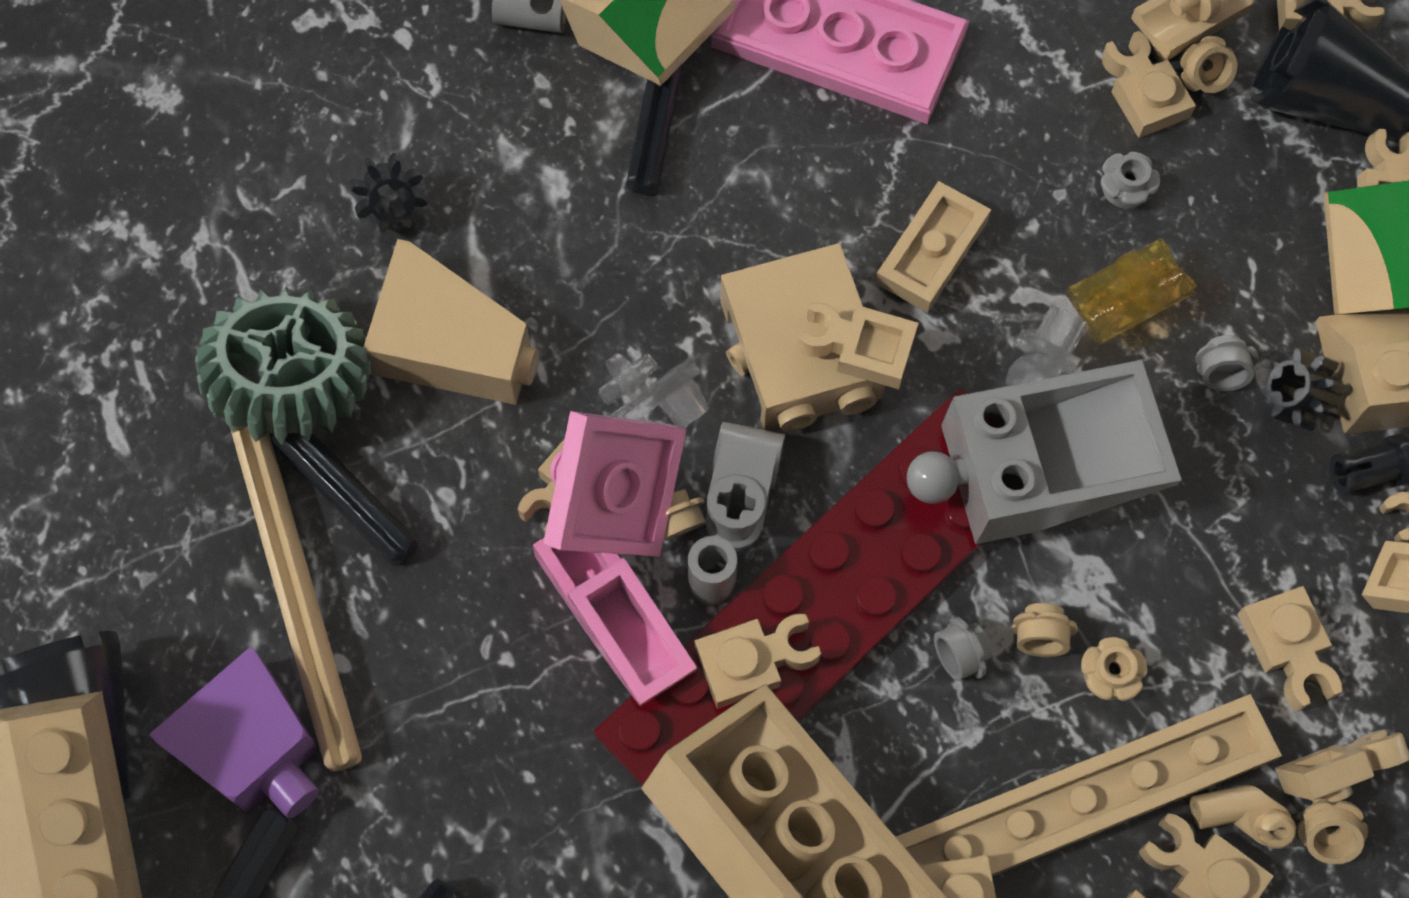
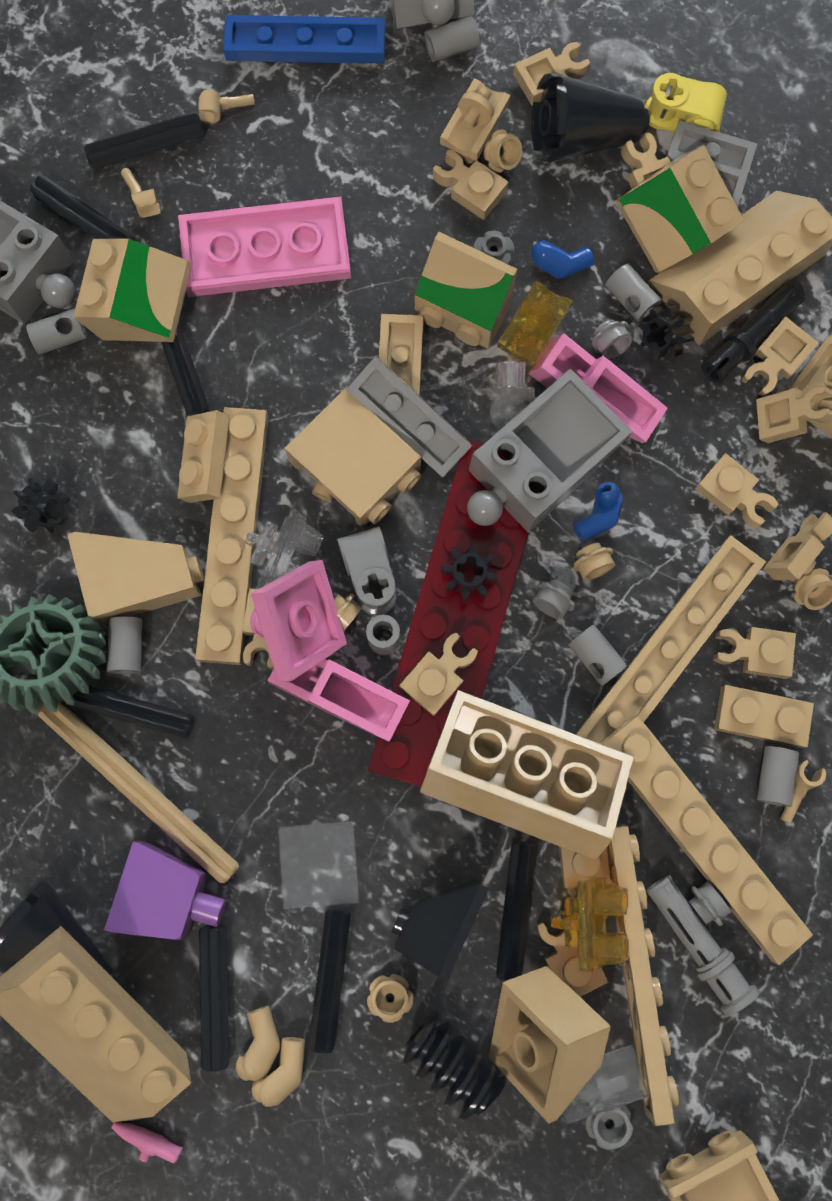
camera: 30 degrees left, 10 degrees up
(386, 411) = (124, 645): none -> light grey piece
(461, 818) = (318, 865): none -> clear piece
(614, 323) = (228, 556): none -> tan plate
(616, 238) = (203, 456): none -> tan plate
(869, 346) = (403, 445): tan plate -> none
(871, 565) = (480, 570): none -> black gear
(891, 284) = (409, 416): none -> light grey plate
(981, 753) = (597, 655): none -> light grey piece
(1060, 205) = (464, 291): none -> tan slope
(1093, 578) = (604, 514): none -> blue arm
(1105, 684) = (639, 572): tan plate -> none
(1195, 430) = (613, 386): none -> bright pink slope
(1208, 235) = (558, 262): none -> blue arm
(1249, 811) = (762, 602): tan arm -> none
(1286, 318) = (633, 292): none -> light grey piece

